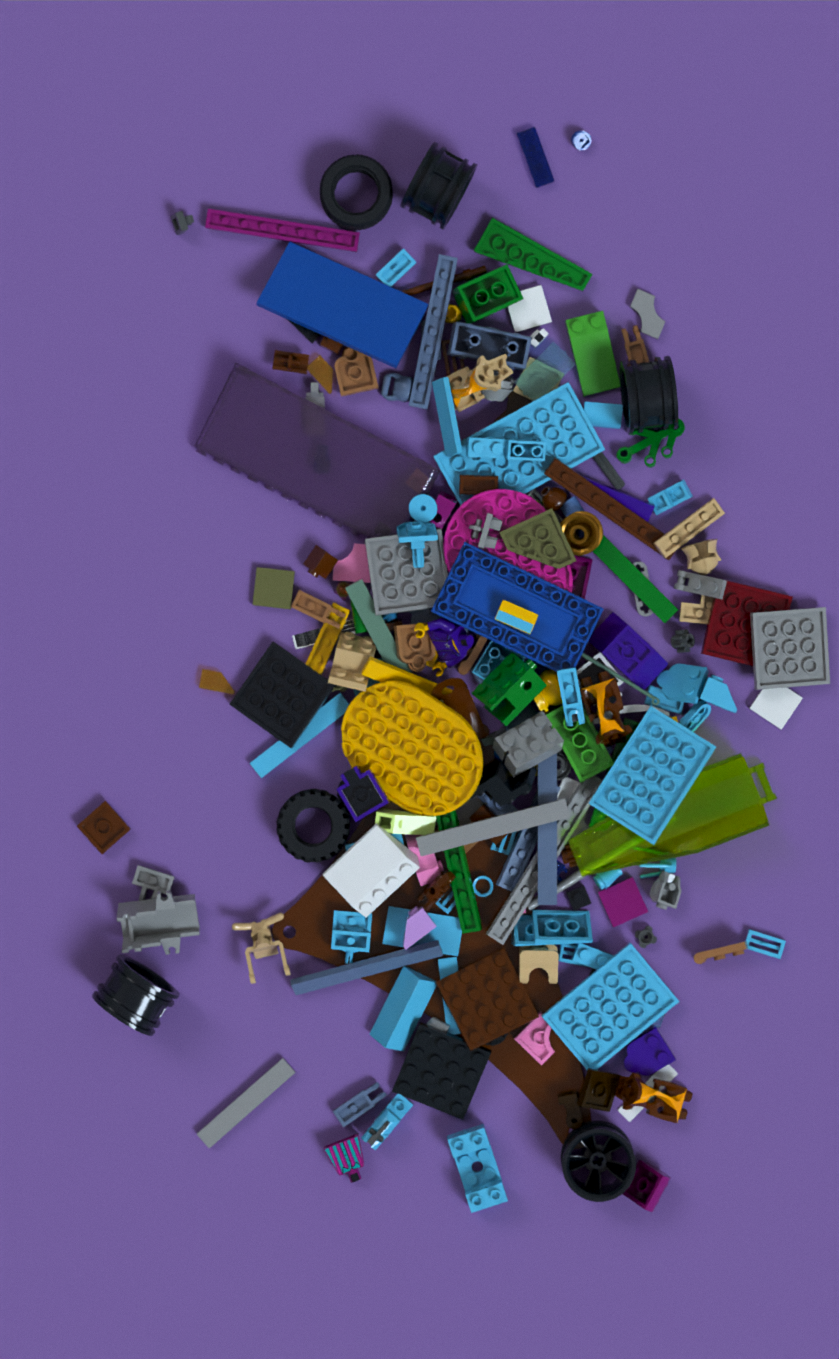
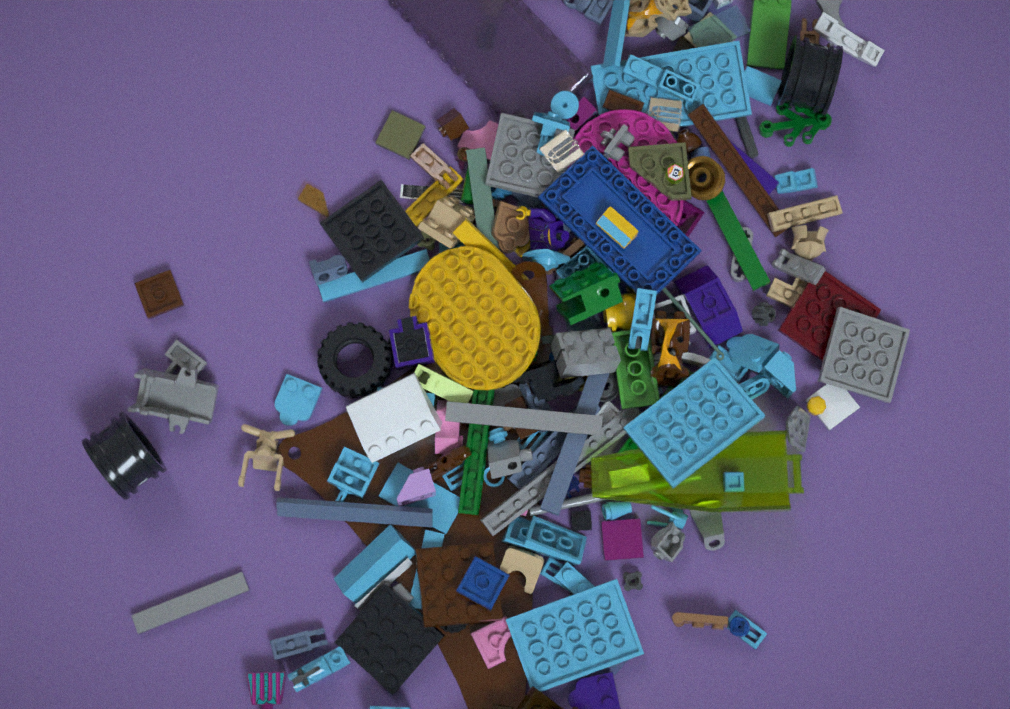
camera: 15 degrees right, 10 degrees down
(255, 747) = (329, 269): none -> sand blue leg
(271, 881) = (296, 400): none -> medium azure plate
(422, 1015) = (389, 579): none -> white sticker
(437, 559) = (562, 151): none -> clear piece
(462, 669) = (547, 258): none -> medium azure hat
(473, 850) = (497, 435): none -> medium azure plate
(489, 867) = (506, 458): none -> light grey torso
(509, 992) = (482, 583): none -> blue tile
(522, 478) = (667, 112): none -> clear piece
(553, 543) = (675, 173): none -> tile
(674, 338) = (852, 44): none -> white slope
(701, 864) = (710, 527): none -> light grey piece
(707, 812) = (733, 481): none -> medium azure tile
(751, 742) = (797, 428): none -> light grey tile
(758, 945) = (739, 626): none -> blue tile
(761, 712) = (816, 405): none -> yellow tile

